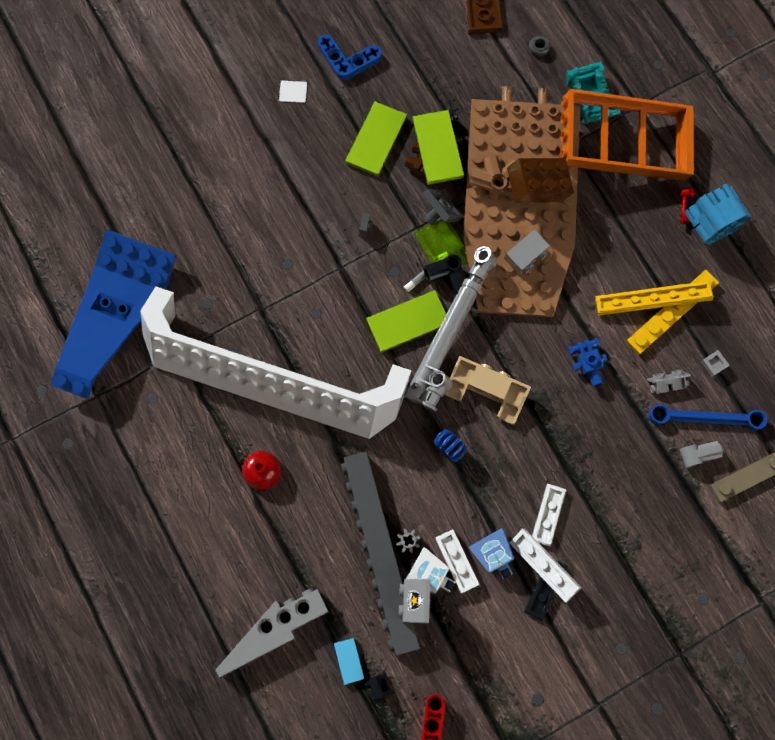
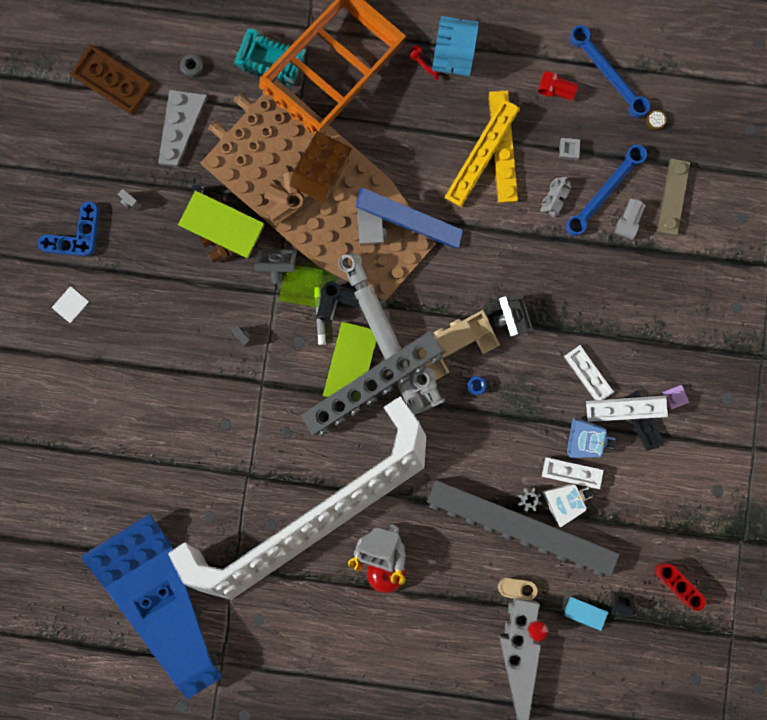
camera: 50 degrees left, 10 degrees up
(277, 450) = (382, 550): none -> light grey torso
(304, 625) = (537, 630): none -> red tile
(325, 583) = (513, 588): none -> tan piece
(376, 139) = (170, 267): lime tile -> none
(402, 74) = (128, 200): none -> light grey plate
(415, 601) = (585, 532): light grey slope -> none
(450, 445) = (480, 409): blue gear -> none
(467, 430) = (476, 385): none -> blue tile
(470, 357) = (314, 417): none -> dark grey brick
(491, 67) = (179, 124): none -> light grey wing
(547, 417) = (514, 315): none -> dark grey tile
(556, 277) = (408, 218): none -> blue tile
(587, 602) = (675, 397): none -> lavender plate
(590, 361) = (495, 245): blue piece -> none
(753, 312) = (553, 85): none -> red piece

